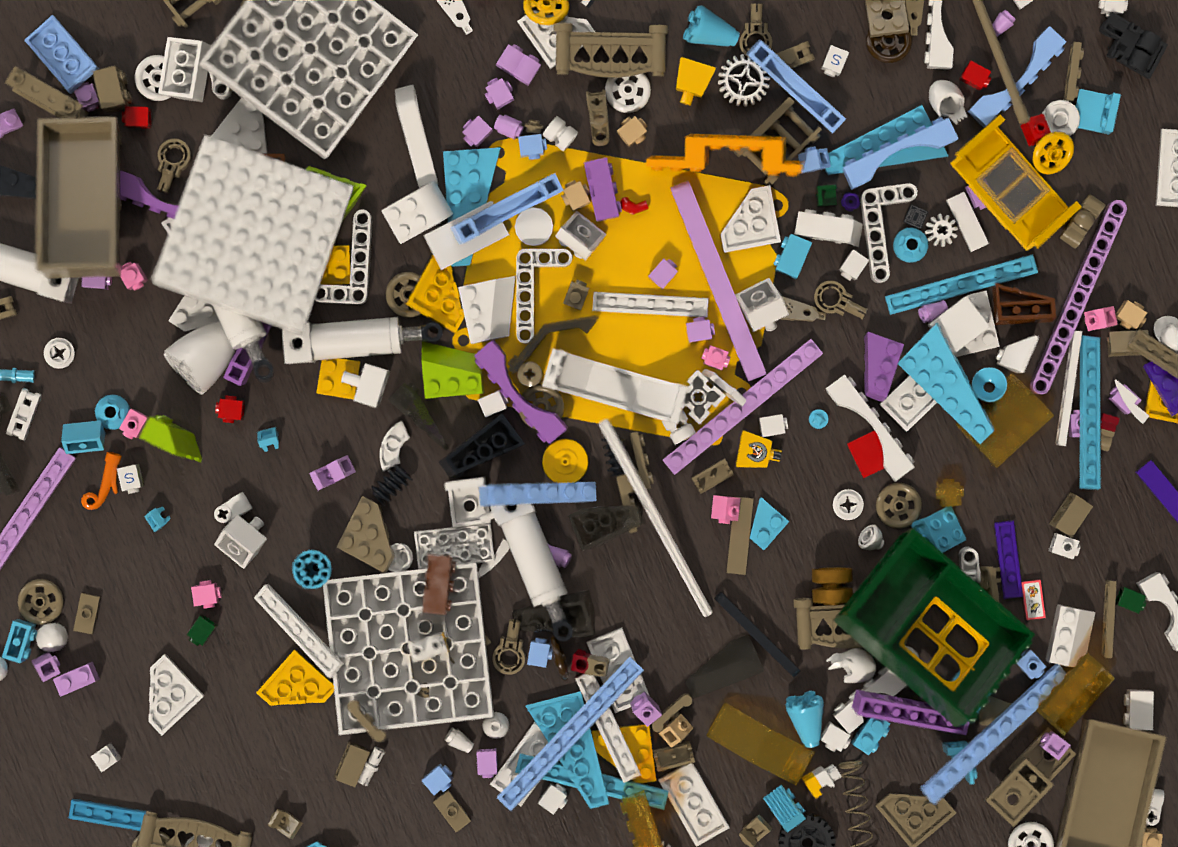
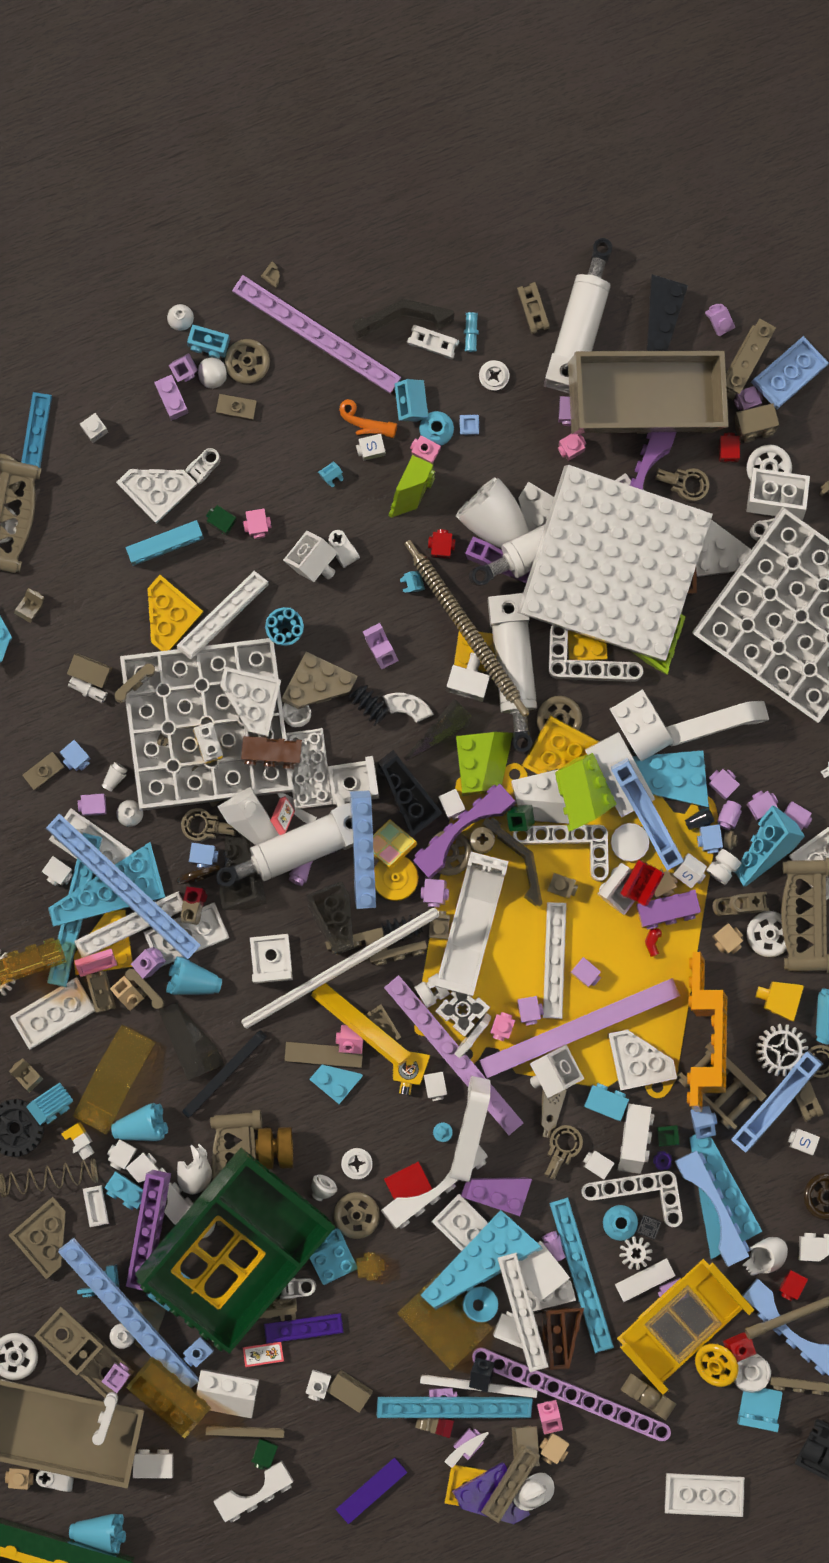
camera: 90 degrees right, 5 degrees down
(109, 379) = (469, 424): none -> light blue tile
(146, 648) = (203, 466): none -> white piece
(224, 687) = (164, 543): none -> medium azure fence
(316, 385) = (466, 628): none -> dark tan hose
(383, 602) = (252, 698): none -> white plate
(483, 271) = (583, 791): none -> lime wedge
(501, 573) = (282, 815): none -> tile
(503, 607) = (248, 817): none -> white wedge
(508, 335) = (520, 818): none -> dark green brick
(512, 156) = (700, 819): none -> black cone
(532, 464) = (391, 844): none -> tile
(536, 83) = (773, 841): none -> medium azure wedge
(564, 166) = (690, 871): none -> white brick
(576, 215) = (642, 883): none -> red bracket
(581, 422) = (435, 892): none -> lavender brick
(616, 417) = (440, 926): none -> dark tan bracket
(645, 761) = (95, 962): none -> bright pink tile
(656, 586) = (277, 969): none -> white bracket
(663, 665) = (191, 979): none -> medium azure cone
(712, 498) = (361, 1025): none -> yellow tile
(818, 390) = (471, 1128): none -> white beam
(885, 763) = (95, 1206): none -> white tile
(1000, 343) = (522, 1312): none -> white tile
(1015, 741) = (121, 1337): none -> white head
(1059, 385) = (481, 1374): none -> black brick
(1098, 758) = (105, 1418): none -> white plate

